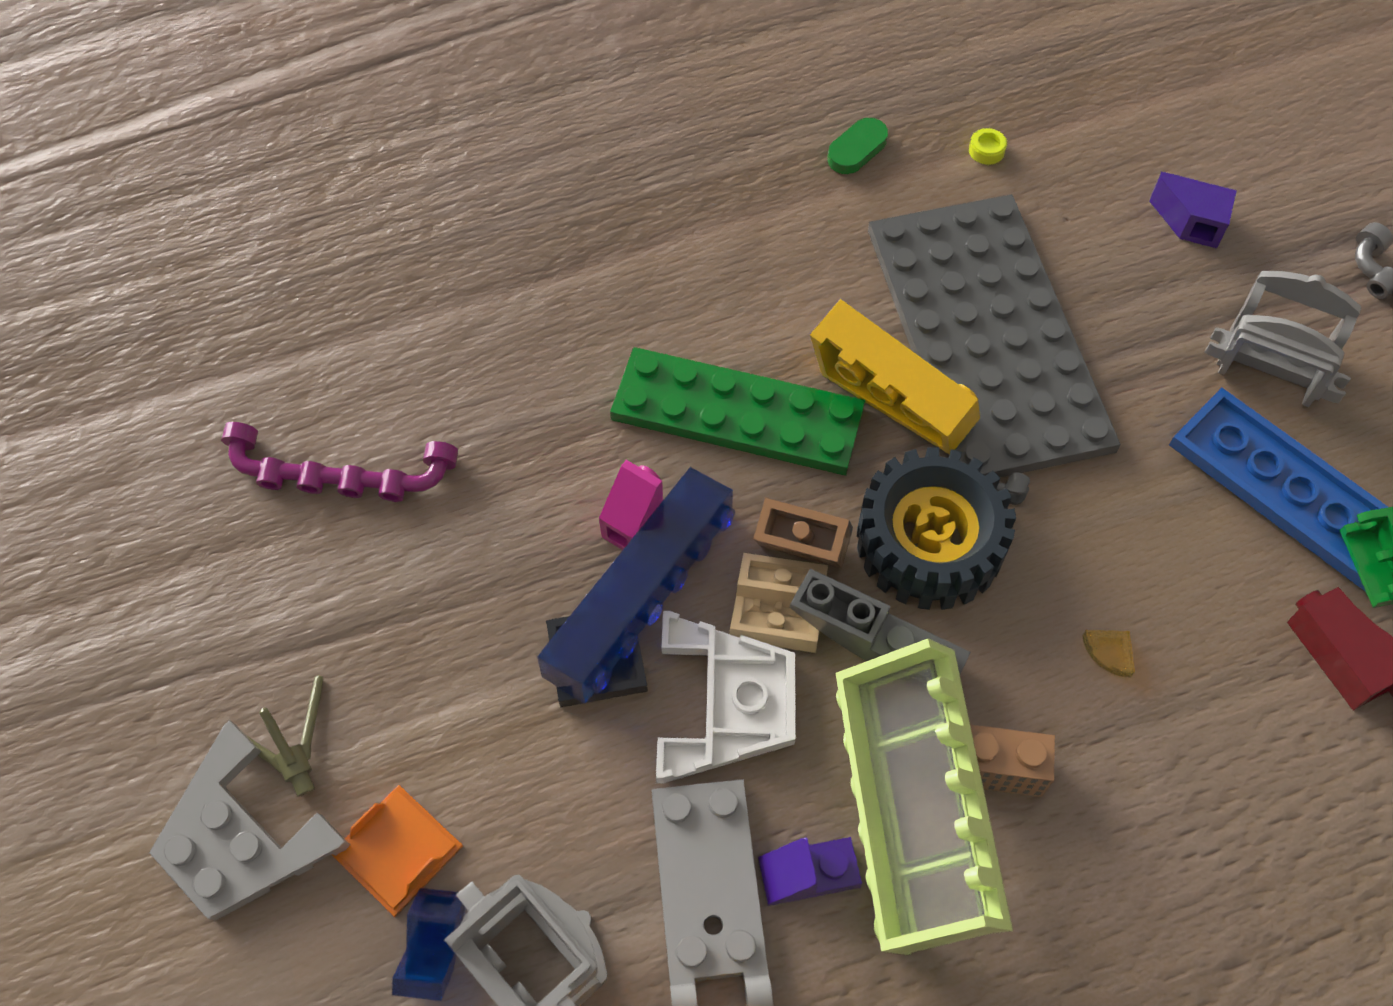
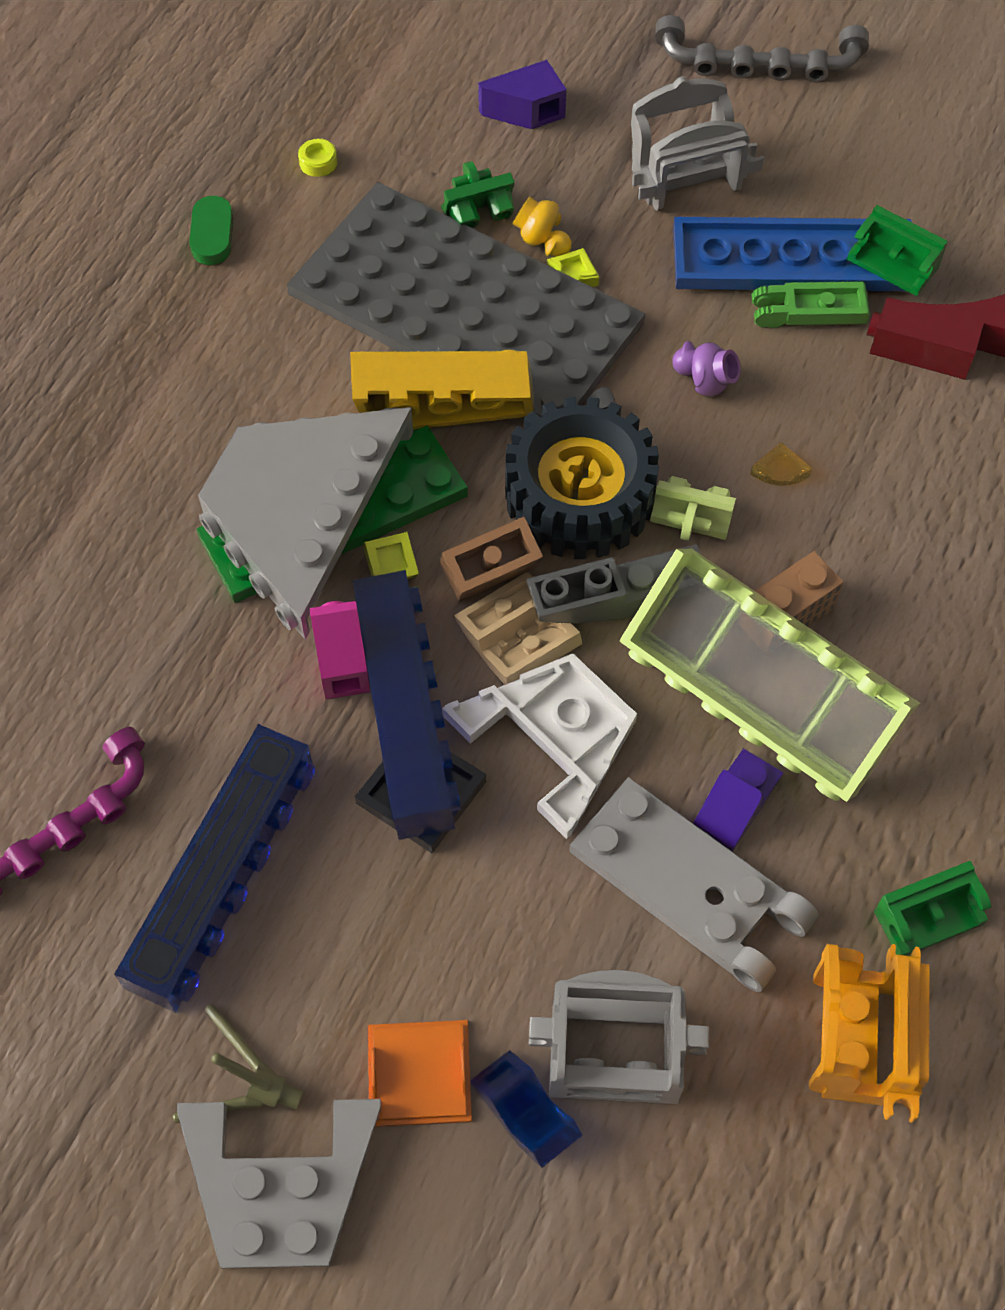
camera: 45 degrees left, 0 degrees up
(411, 588) = (215, 869): none -> brick
(711, 372) = (293, 497): none -> light grey piece
(740, 474) = (391, 555): none -> neon yellow plate
(999, 625) = (692, 508): none -> yellowish green hips
(1080, 254) = (478, 190): none -> green hips
(1100, 312) = (536, 226): none -> yellow animal
(1102, 368) = (576, 265): none -> neon yellow tile
(1127, 524) = (709, 365): none -> medium lavender animal
(1273, 543) = (811, 304): none -> bright green hinge

